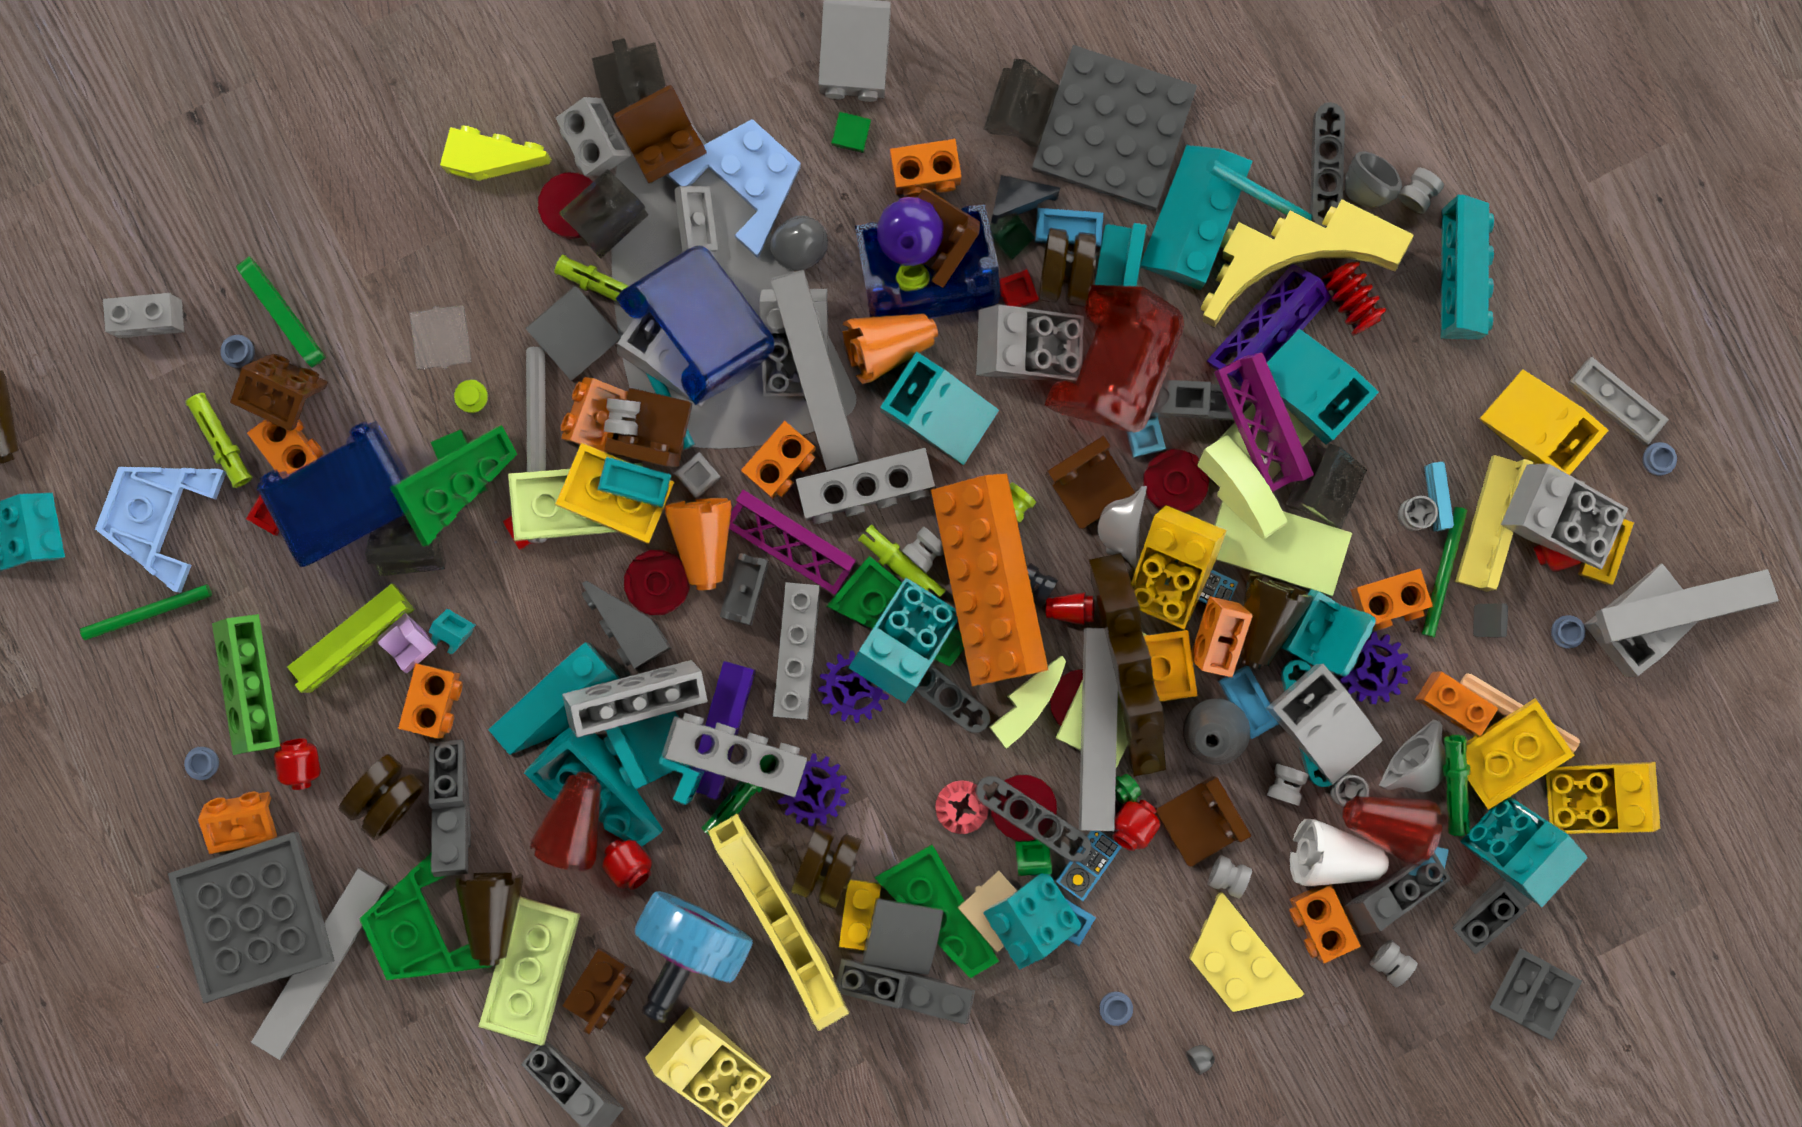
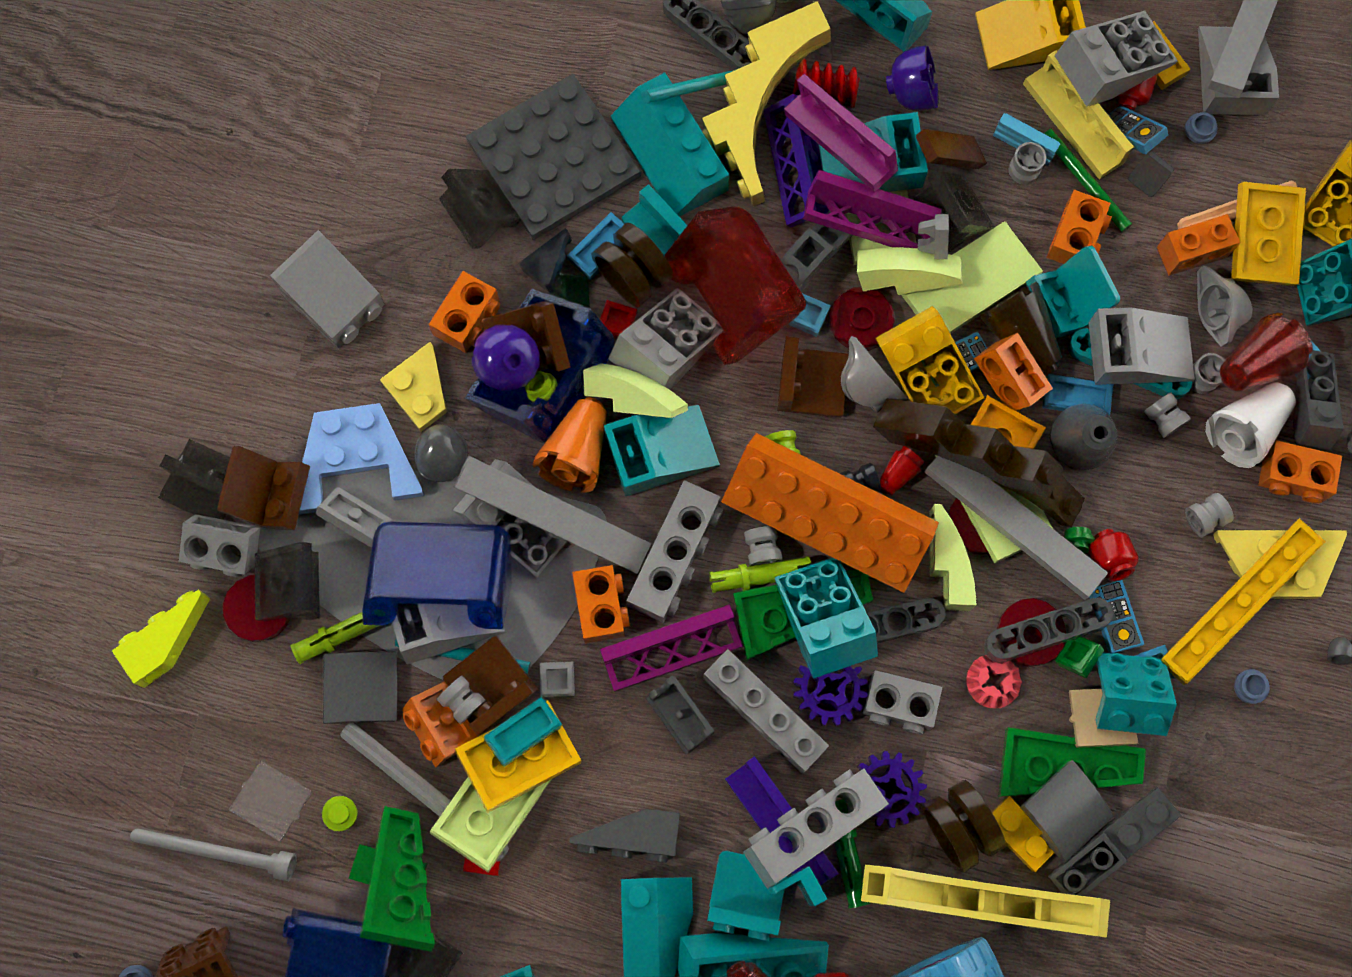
camera: 50 degrees left, 10 degrees down
(280, 312) = (135, 918): green beam -> none
(400, 384) = (279, 865): none -> light grey piece
(634, 698) = (700, 875): light grey brick -> none
(656, 582) = (617, 783): dark red tile -> none
(701, 538) = (612, 715): orange cone -> none
(837, 180) = (418, 387): none -> light yellow wing
(851, 132) = (389, 347): green tile -> none
(895, 745) = (902, 692): none -> light grey brick
(963, 351) = (632, 391): none -> yellowish green slope
(1177, 952) = (1242, 601): none -> yellow tile
(1202, 821) = (1148, 499): reddish brown bracket -> none
(1285, 491) = (938, 231): none -> light grey tile
(1307, 347) = (842, 134): none -> magenta fence
(1373, 443) = (950, 149): none -> reddish brown tile
(1378, 680) = (1136, 279): dark purple gear -> none
(1415, 365) = (914, 79): none -> dark purple cylinder
(1457, 775) = (1254, 282): green pin -> none
(1518, 579) = (1138, 129): none -> tile

